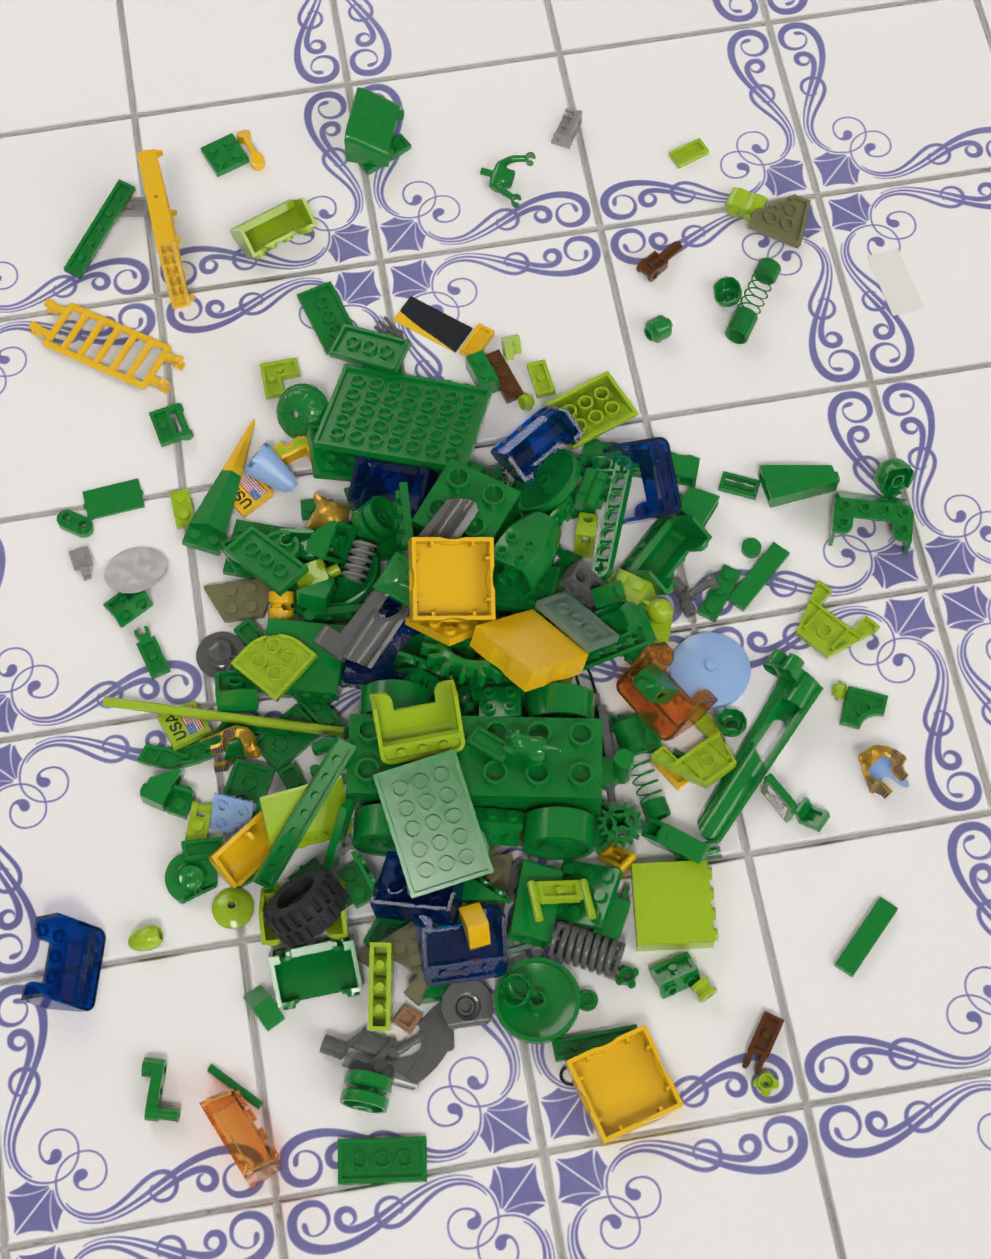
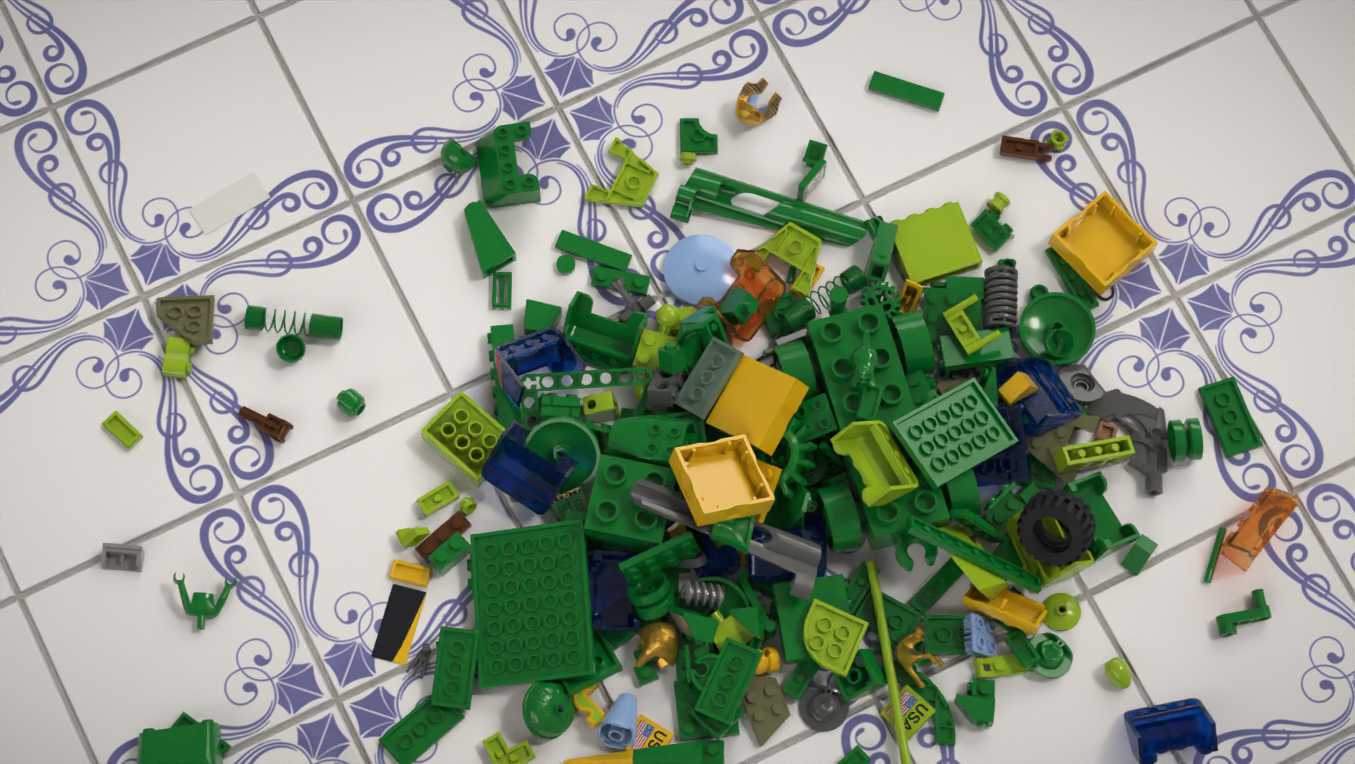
camera: 110 degrees left, 5 degrees up
(363, 914) = (1027, 492): none -> green tile
(731, 722) = (749, 237): green hair -> none

